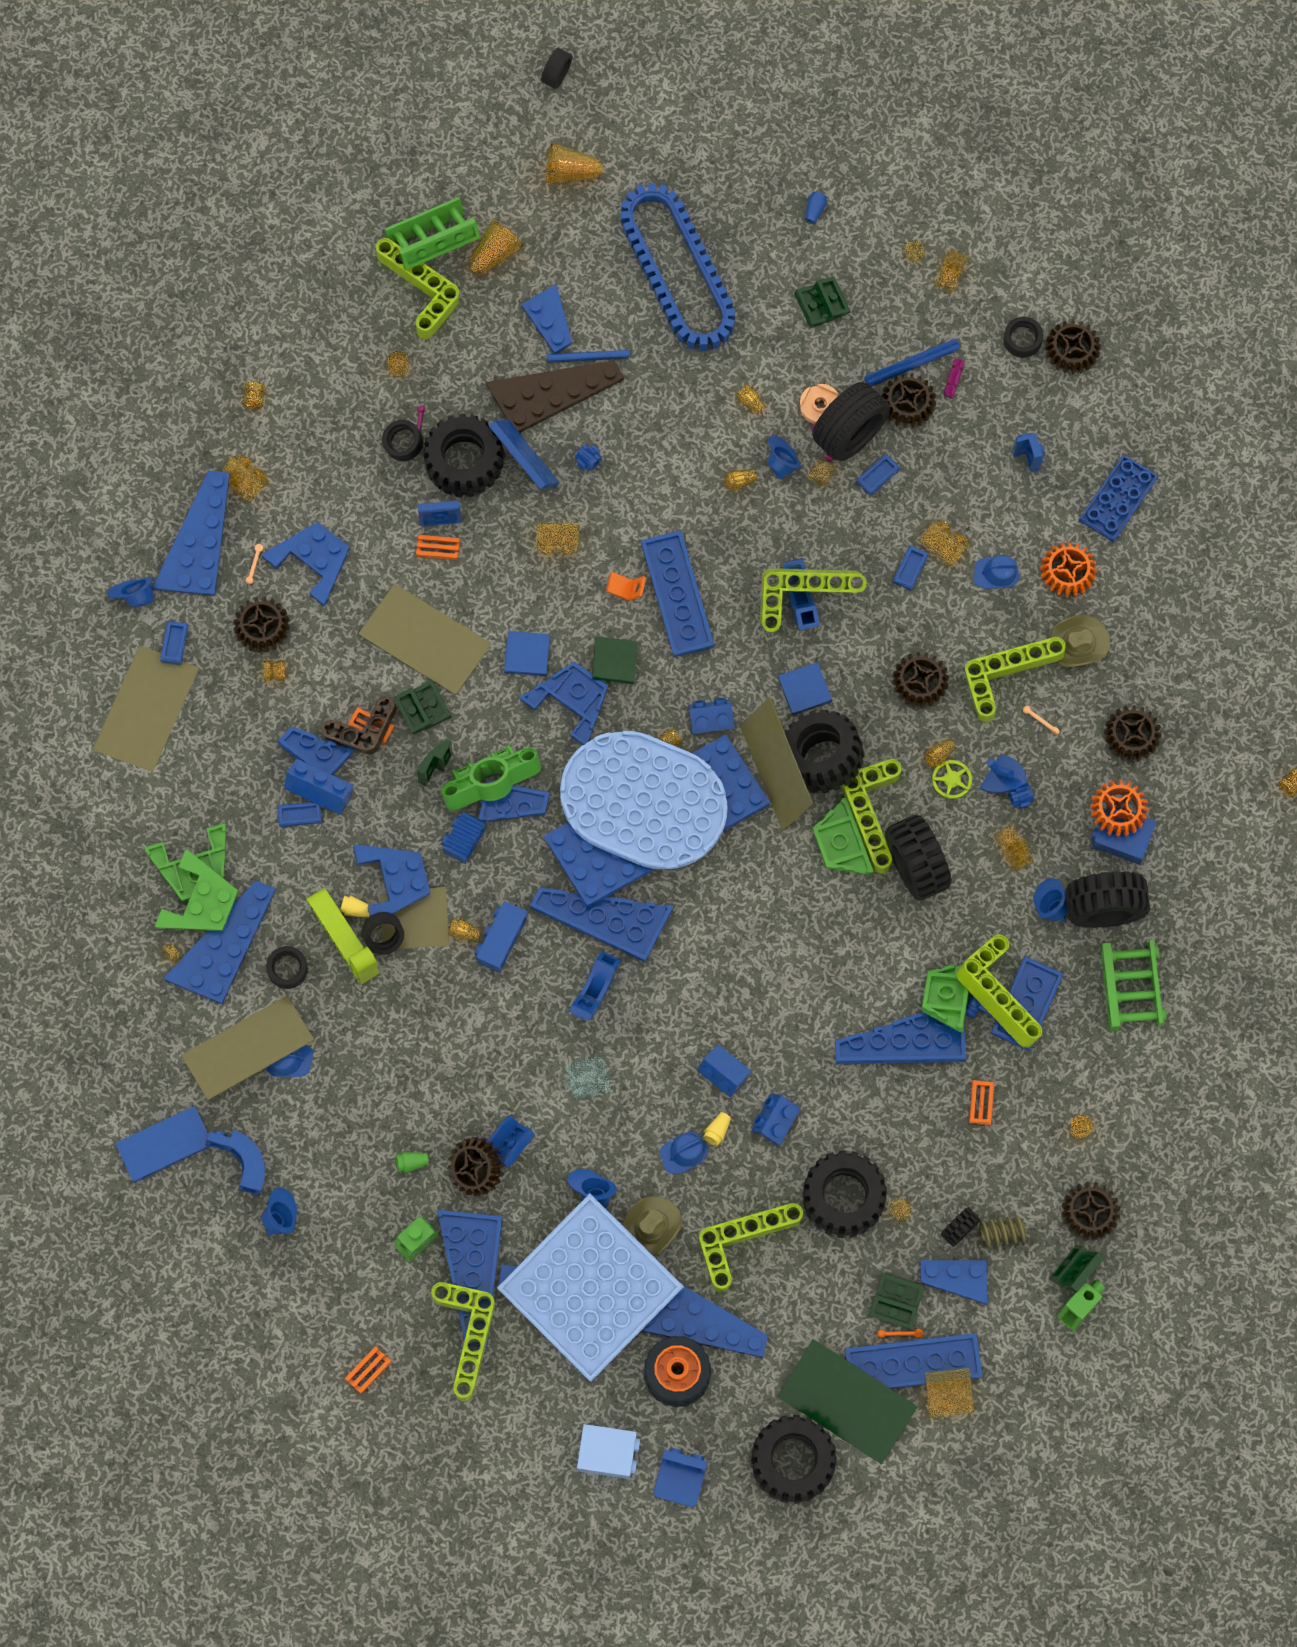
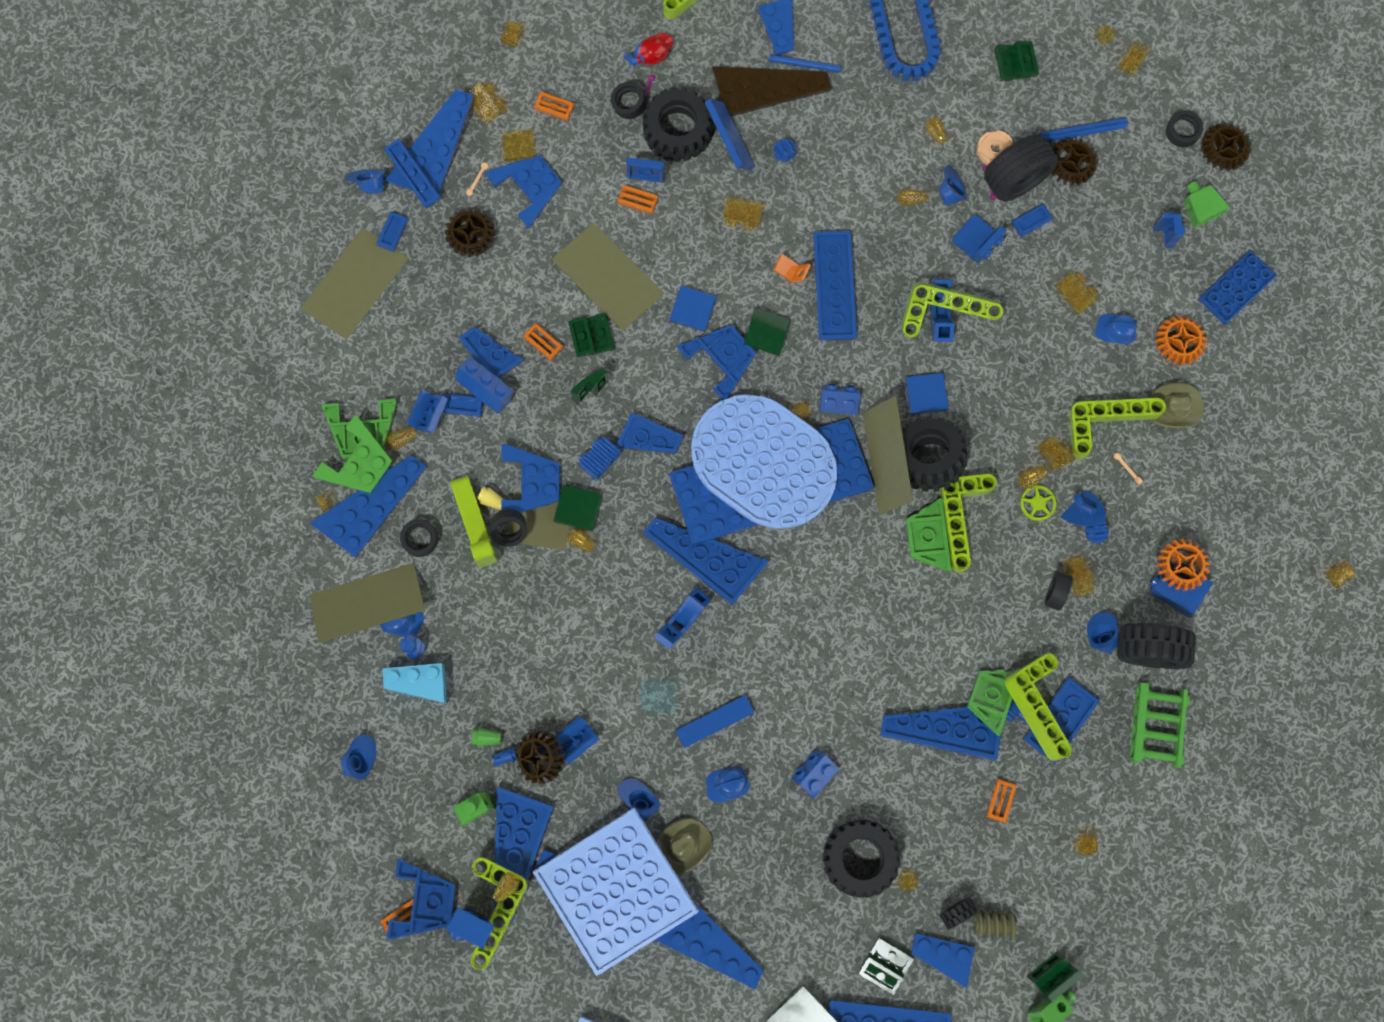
camera: 10 degrees right, 5 degrees up
(163, 1144) = (274, 671): blue tile -> none
(182, 574) = (412, 173): none -> blue tile
(239, 865) = (400, 438): none -> clear yellow cone
(247, 1153) = (345, 702): blue arch -> none
(262, 830) = (426, 412): none -> blue bracket
(279, 670) = (471, 274): clear yellow wheel -> none
(291, 516) = (518, 145): none -> clear yellow piece
(308, 1083) = (412, 646): none -> blue rock
(322, 472) = (537, 106): none -> orange tile
(323, 1118) = (417, 681): none -> medium azure wedge
(368, 733) = (537, 348): dark brown beam -> none
(395, 1346) = (430, 905): none -> blue wing
(398, 359) = (640, 32): clear yellow wheel -> none
(413, 380) = (651, 50): none -> red hair
(437, 1177) = (504, 757): none -> blue pin
(445, 1354) = (470, 927): none -> blue wedge
(452, 896) = (578, 508): none -> dark green slope
(473, 1305) = (505, 887): none -> clear yellow cone
(501, 936) = (611, 553): blue brick -> none
(512, 766) = (613, 416): bright green piece -> none
(655, 1089) = (714, 721): none -> blue tile
(673, 1388) = (675, 1004): wheel -> none
(717, 1129) = (761, 771): light yellow cone -> none
(724, 1071) = (779, 720): blue brick -> none
(742, 1234) = (760, 873): lime beam -> none
(821, 472) = (983, 208): clear yellow slope -> none
(823, 507) = (978, 239): none -> blue bracket
(906, 687) = (1044, 404): dark brown gear -> none
(910, 567) = (1042, 308): blue tile -> none
(918, 857) = (995, 569): black tyre -> none
(918, 1333) = (898, 999): orange hinge -> none
(953, 378) = (1116, 151): magenta axle -> none
(958, 722) = (1055, 454): none -> clear yellow slope
(993, 867) = (1058, 591): none -> black tyre
(1062, 415) = (1204, 204): none -> bright green torso
(1081, 1211) = (1061, 922): dark brown gear -> none
(1126, 727) = (1195, 484): dark brown gear -> none

